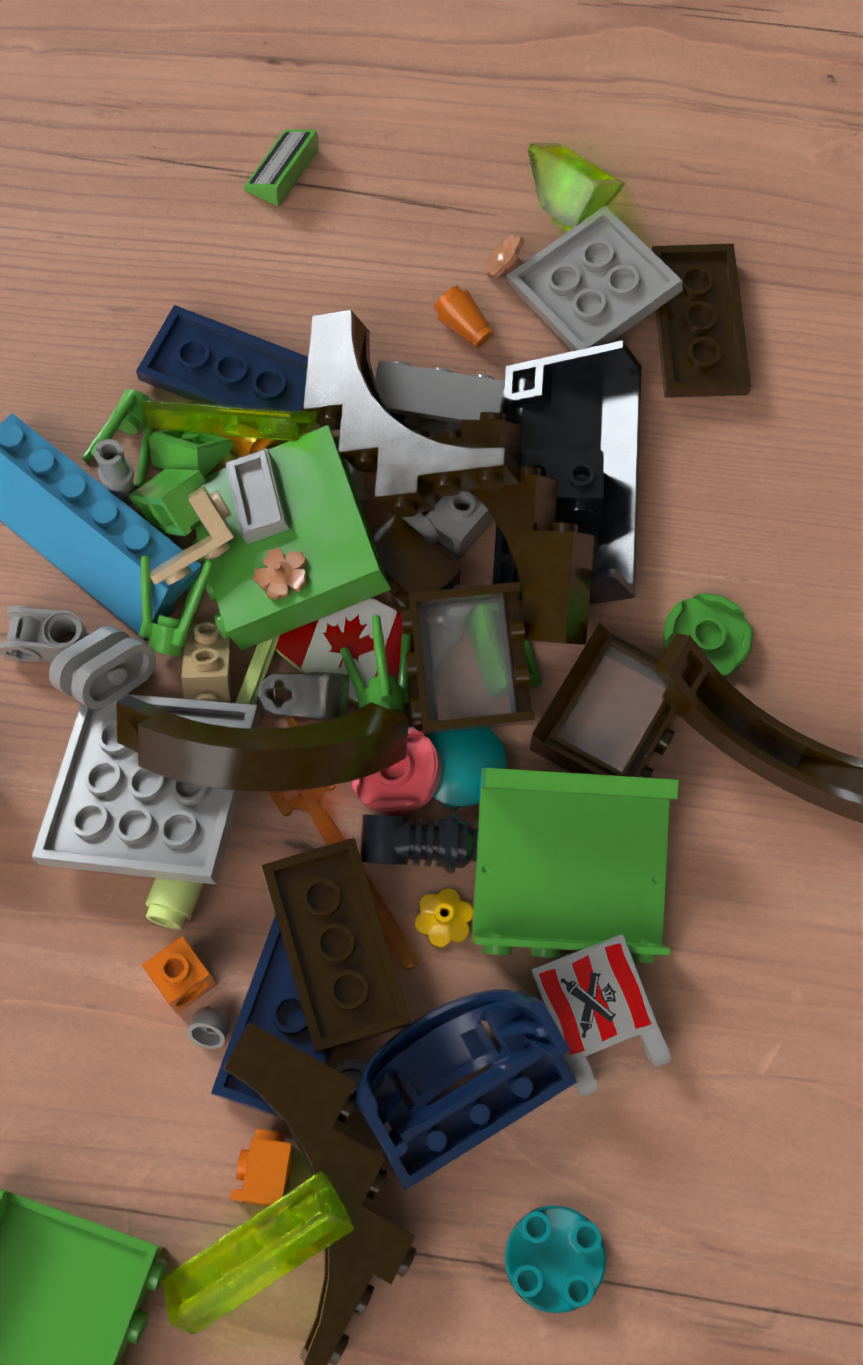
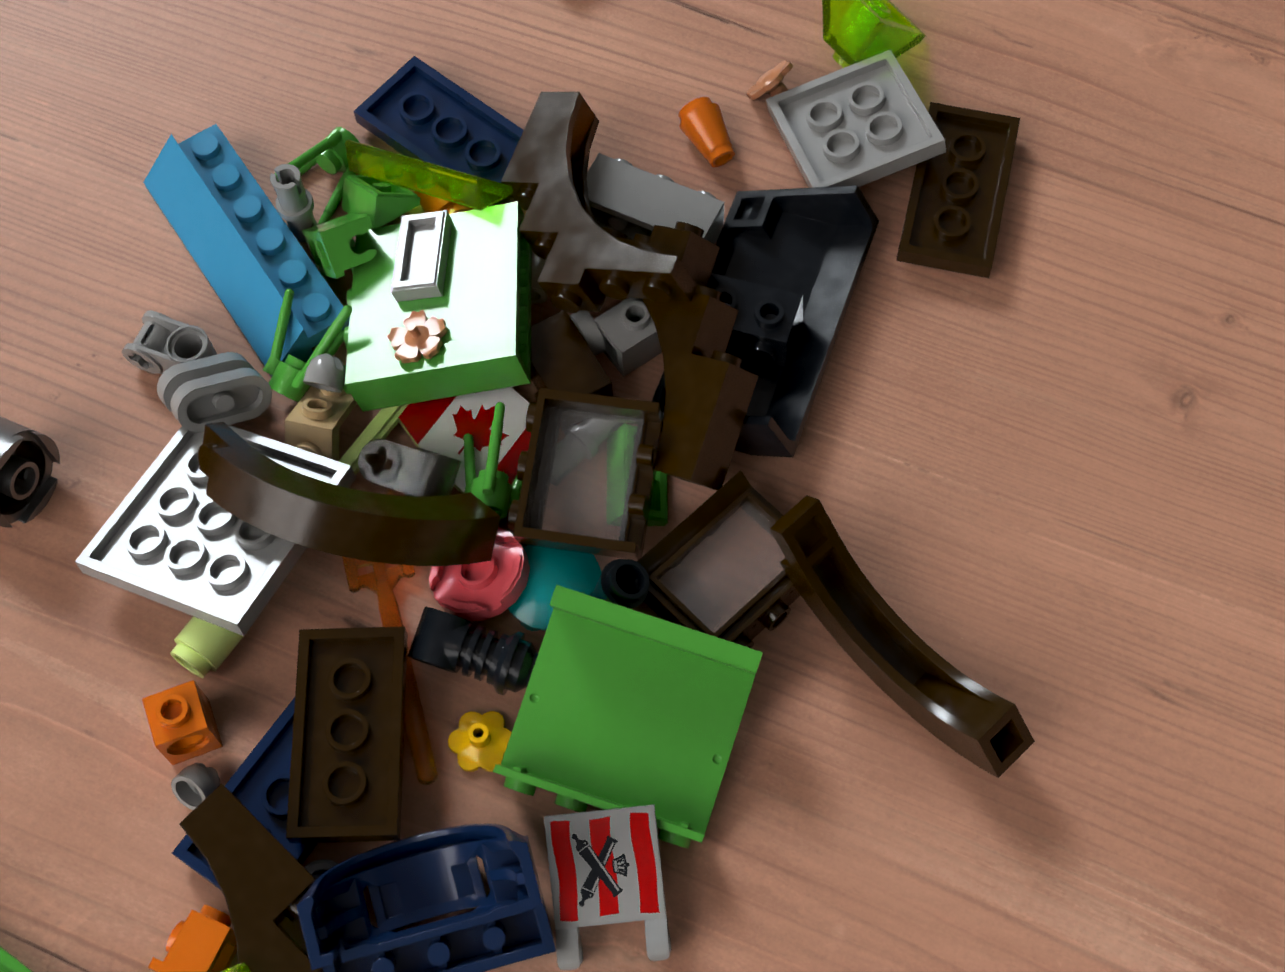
camera: 20 degrees right, 5 degrees down
(204, 625) = (325, 373): none -> light grey hinge
(212, 513) = (365, 261): tan bracket -> none
(530, 750) = (623, 583): none -> black cone
(715, 626) = (868, 515): bright green tile -> none

